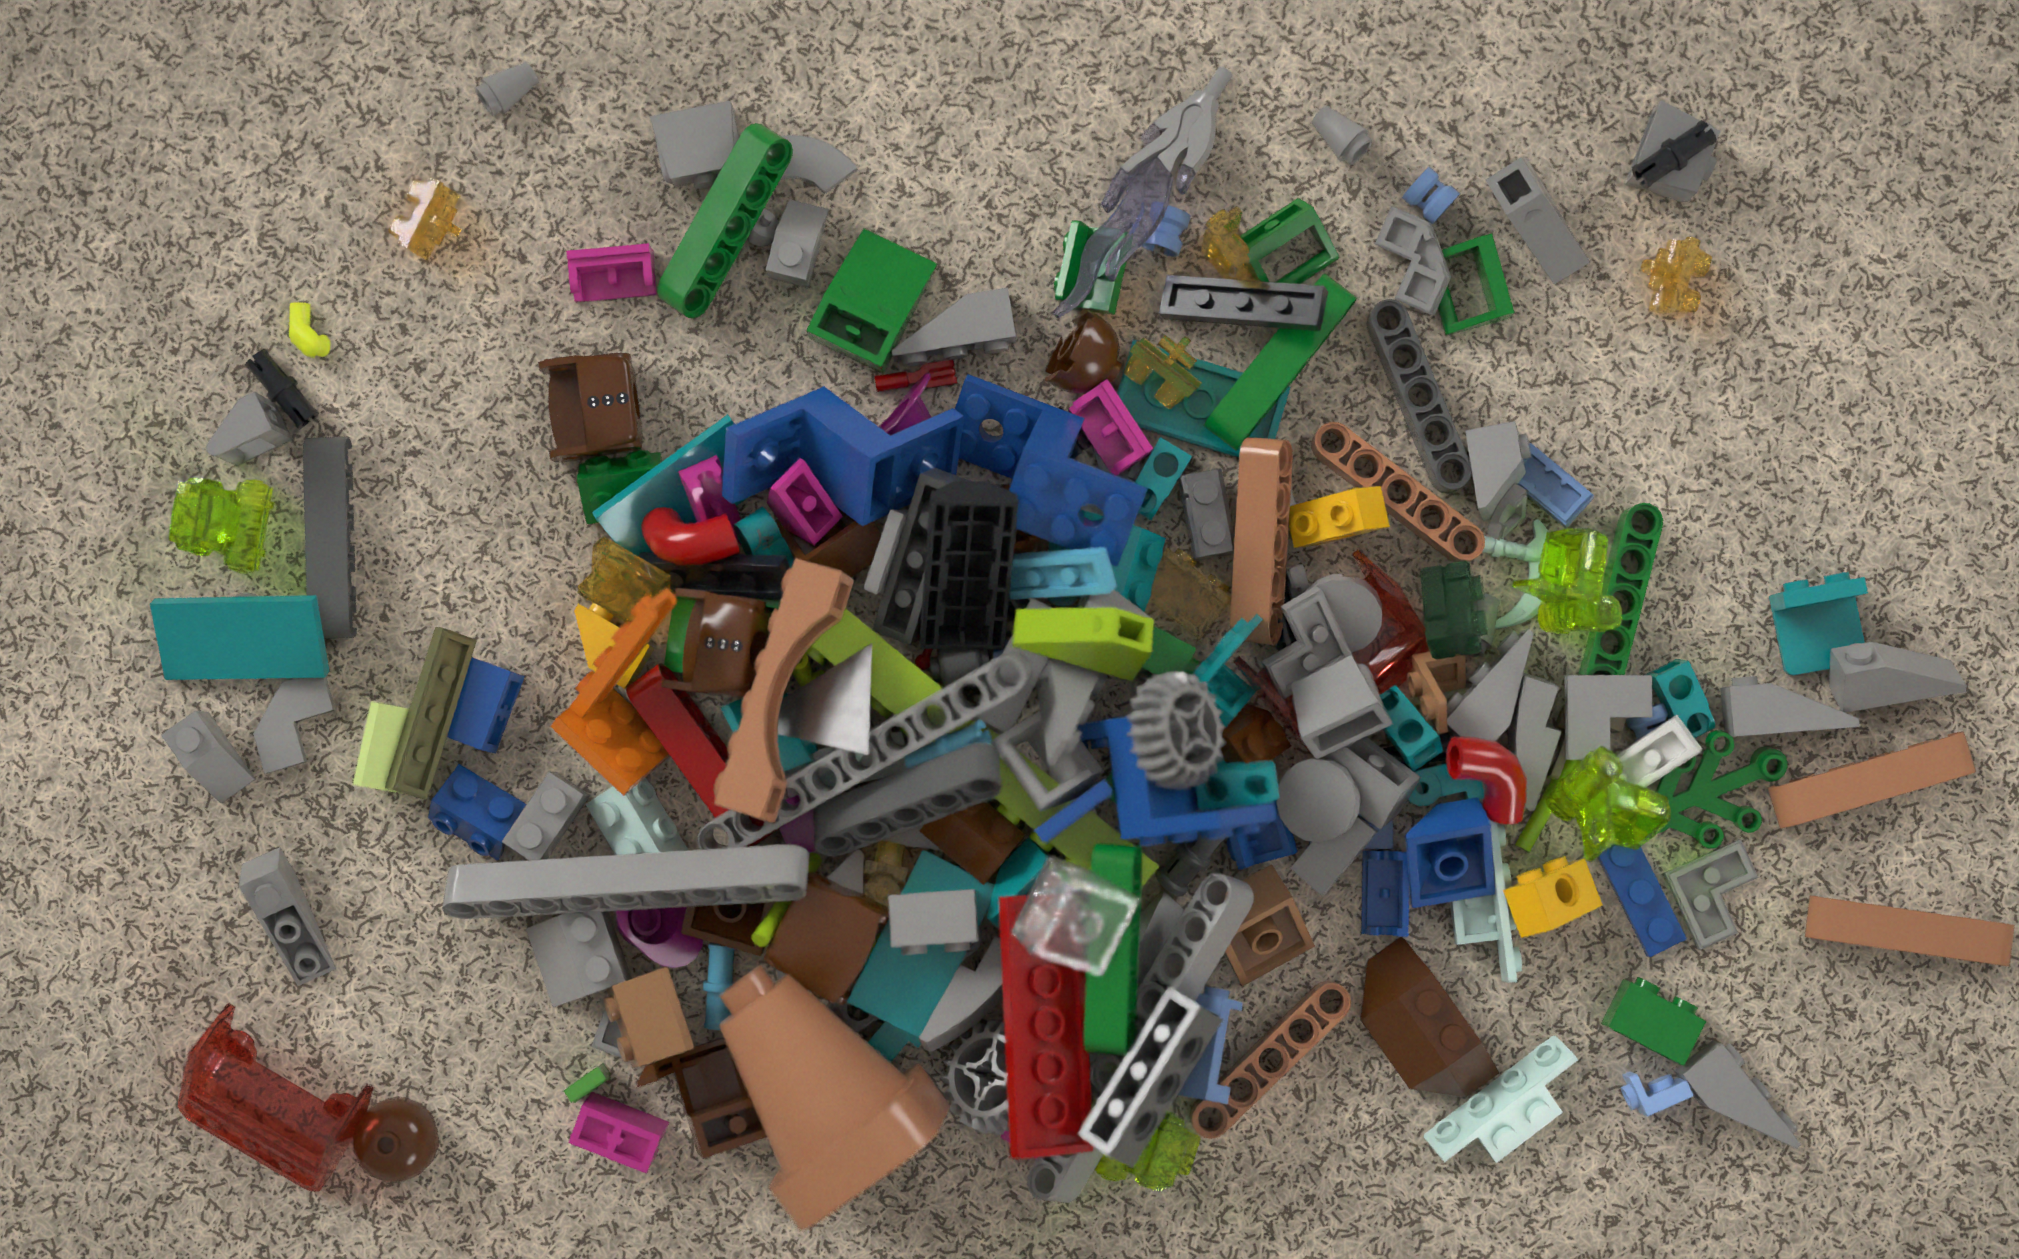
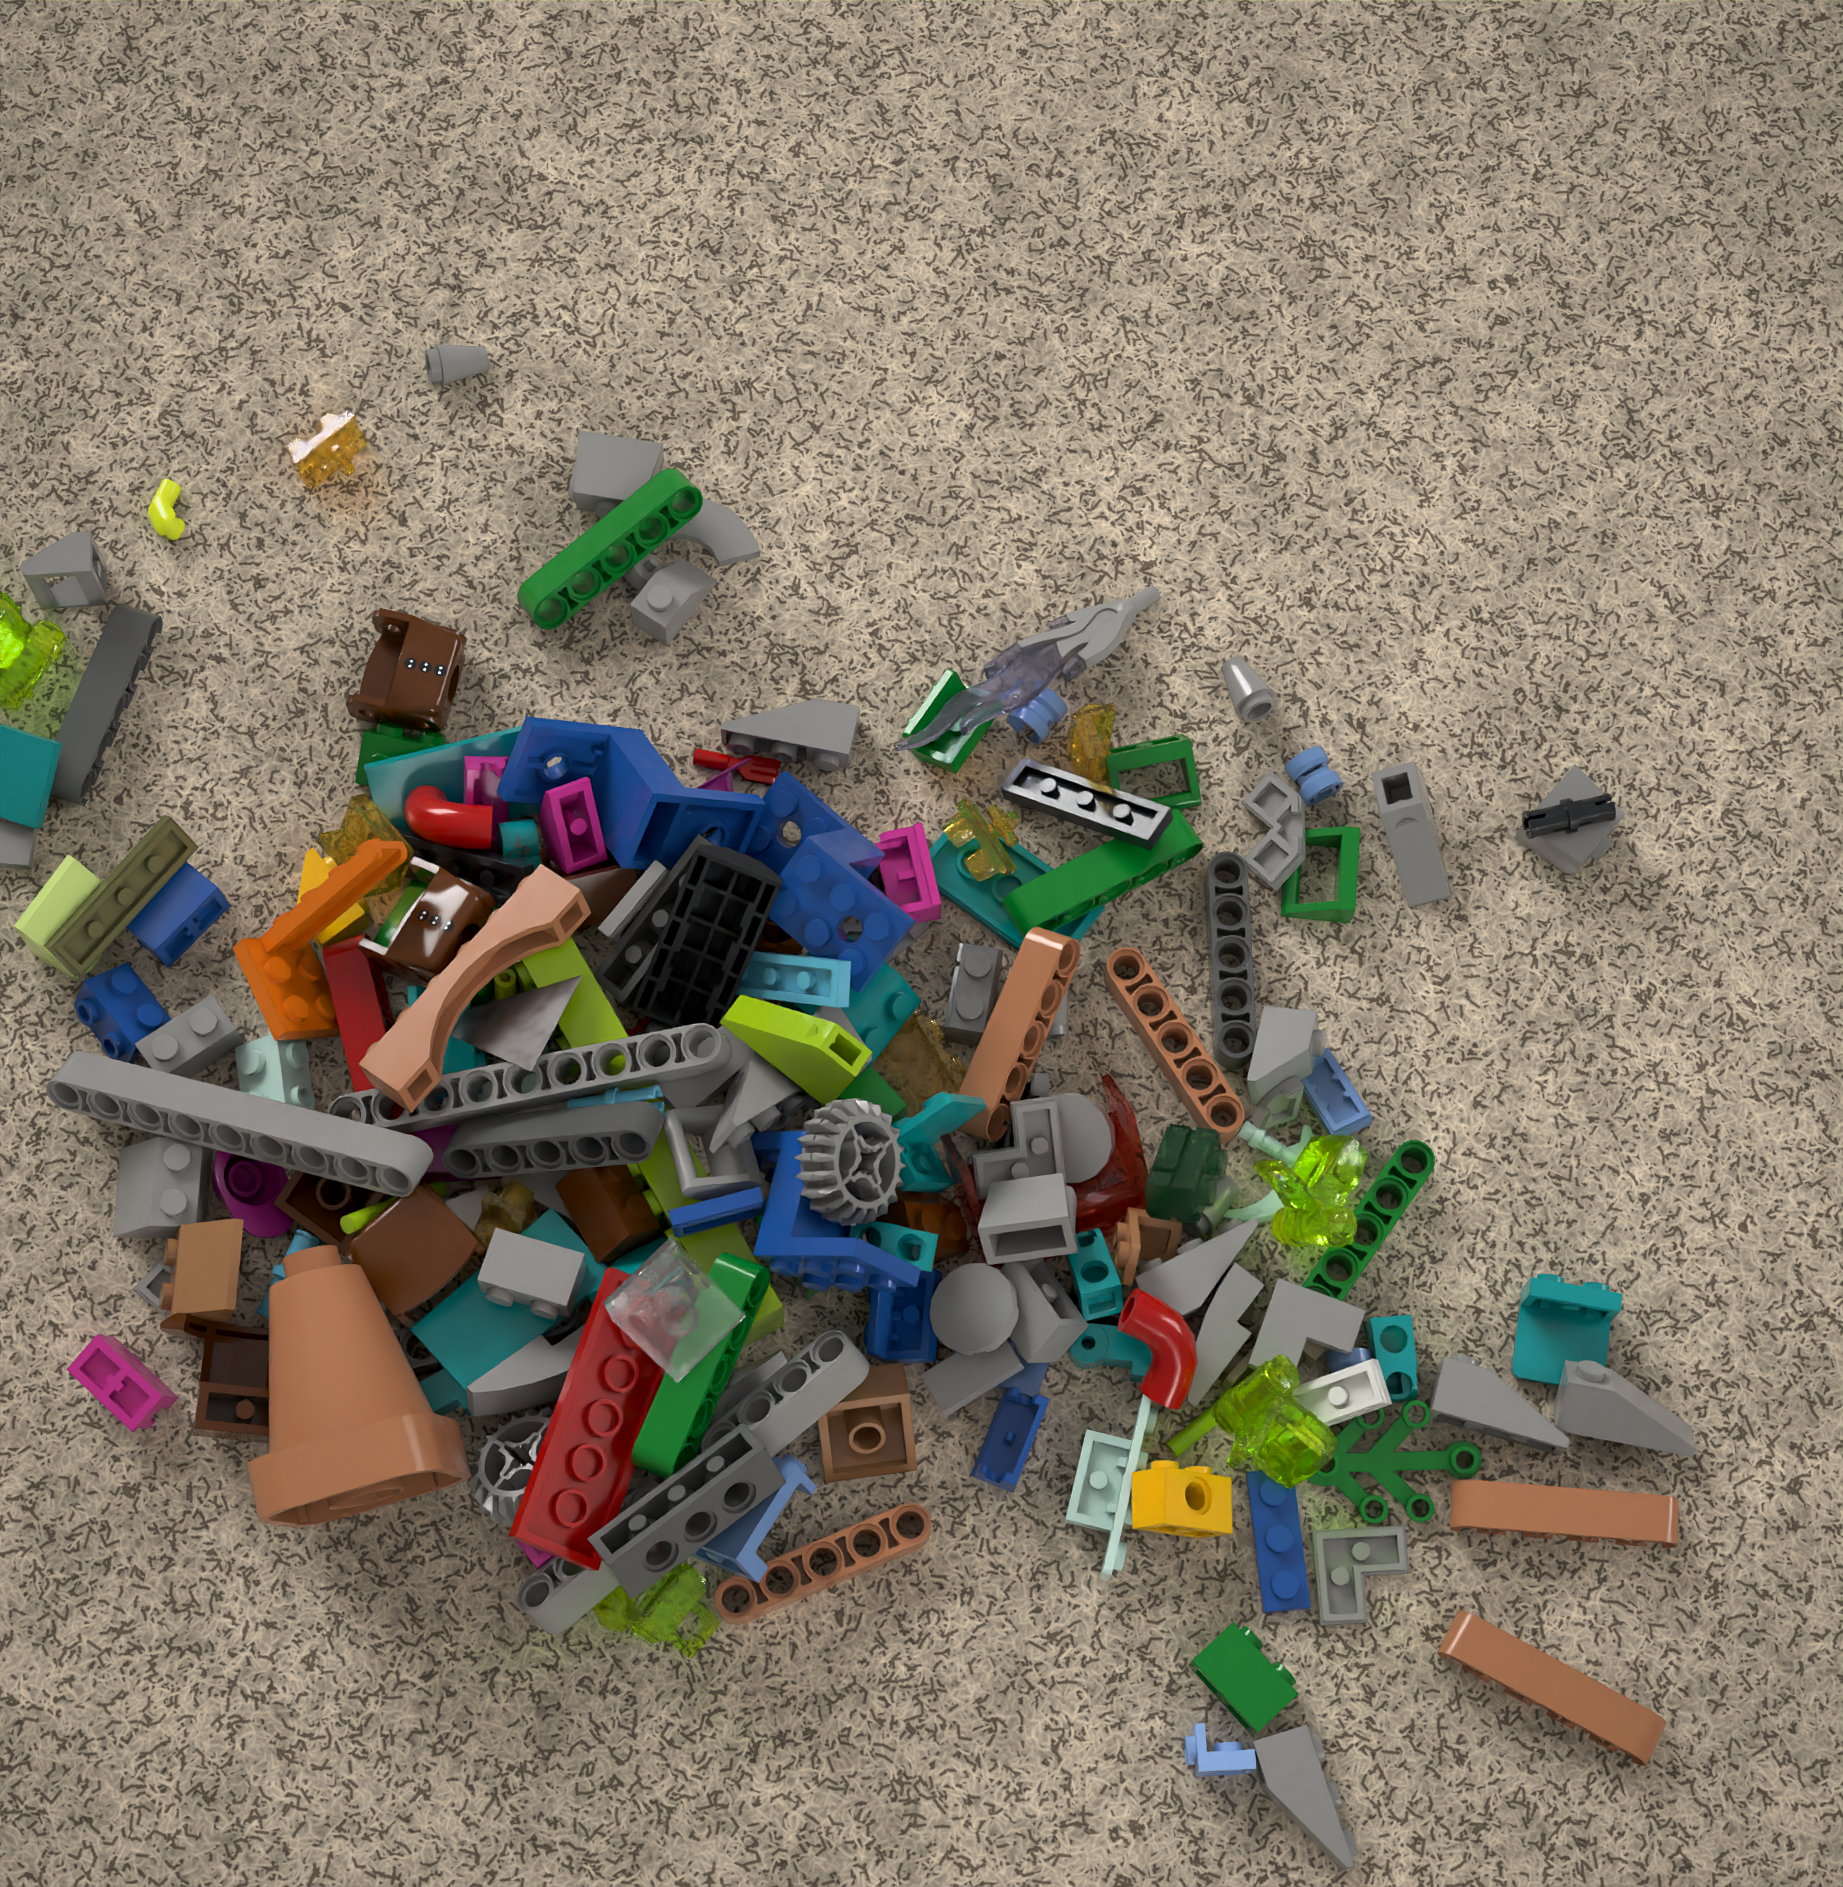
camera: 15 degrees right, 15 degrees down
(281, 388) = (118, 552): black pin -> none
(587, 1083) = (113, 1320): bright green tile -> none
(612, 272) = (482, 560): dark pink hinge -> none
(871, 300) = (719, 675): green slope -> none
(1085, 356) = (912, 798): reddish brown cylinder -> none
(1161, 475) = (936, 942): teal leg -> none
(1187, 862) = (830, 1317): dark grey pin -> none
(1337, 516) = (1102, 1039): yellow brick -> none
(1421, 1025) = (997, 1594): reddish brown wedge -> none
(1450, 854) = (1088, 1417): blue slope -> none
(1507, 1108) = (1054, 1716): light aqua bracket -> none
(1672, 273) = (1527, 934): clear yellow hips -> none

